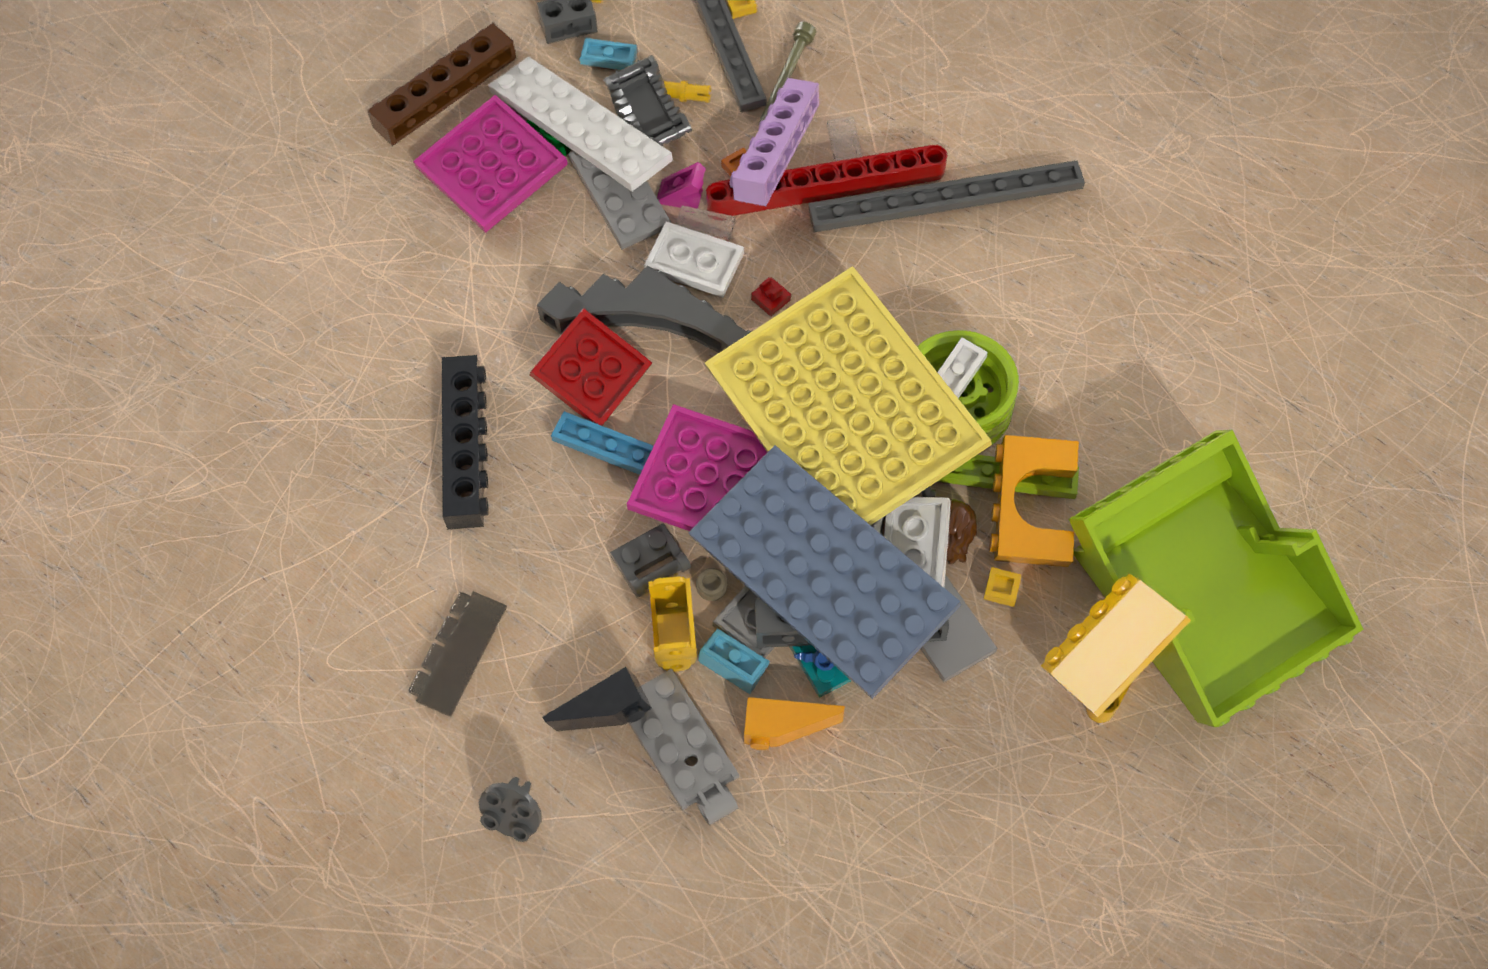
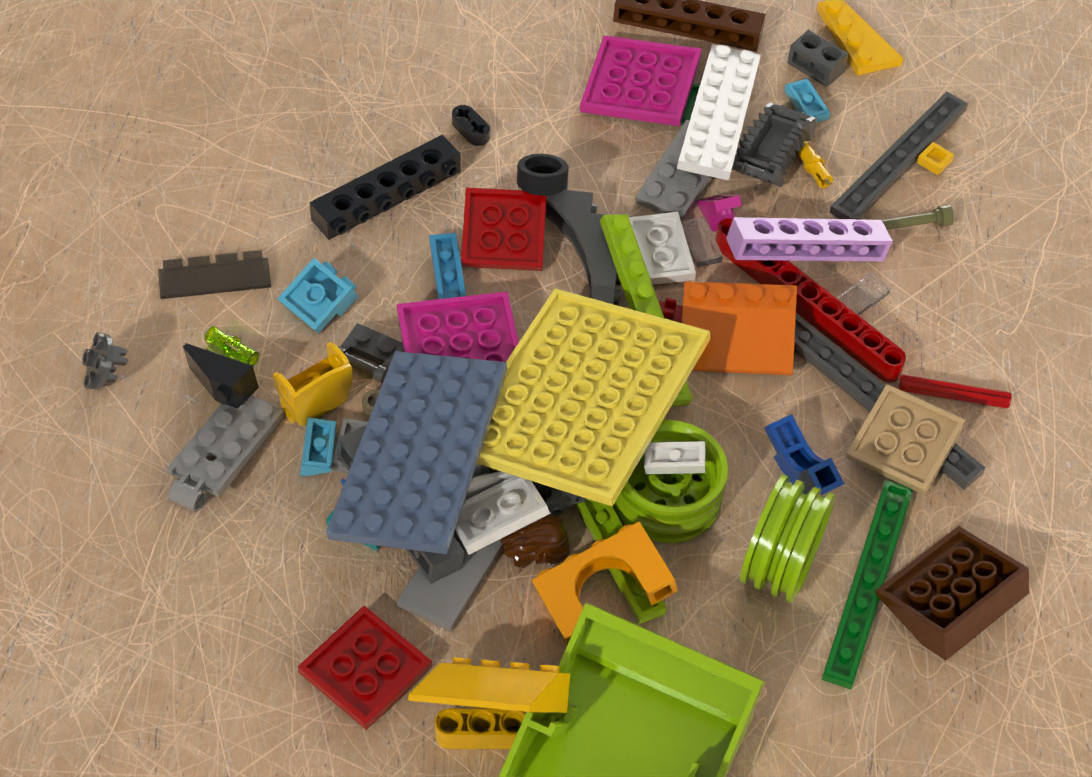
camera: 55 degrees right, 10 degrees down
(434, 330) = (474, 122): none -> black beam
(556, 568) = (318, 295): none -> medium azure plate
(572, 312) = (542, 174): none -> black tyre
(584, 671) = (219, 338): none -> clear neon green pin
(715, 292) = (634, 275): none -> lime plate
(781, 721) = (284, 505): light orange slope -> none
(829, 239) = (747, 326): none -> orange slope
(985, 136) = (955, 391): none -> red axle
(997, 286) = (799, 460): none -> blue arch
(999, 742) = (365, 667): none -> red plate
(1002, 586) = (511, 604): yellow plate -> none
(1022, 196) = (905, 439): none -> tan plate
(1088, 334) = (787, 538): none -> lime wheel
(1131, 309) = (869, 575): none -> green tile
(1180, 252) = (954, 591): none -> reddish brown slope

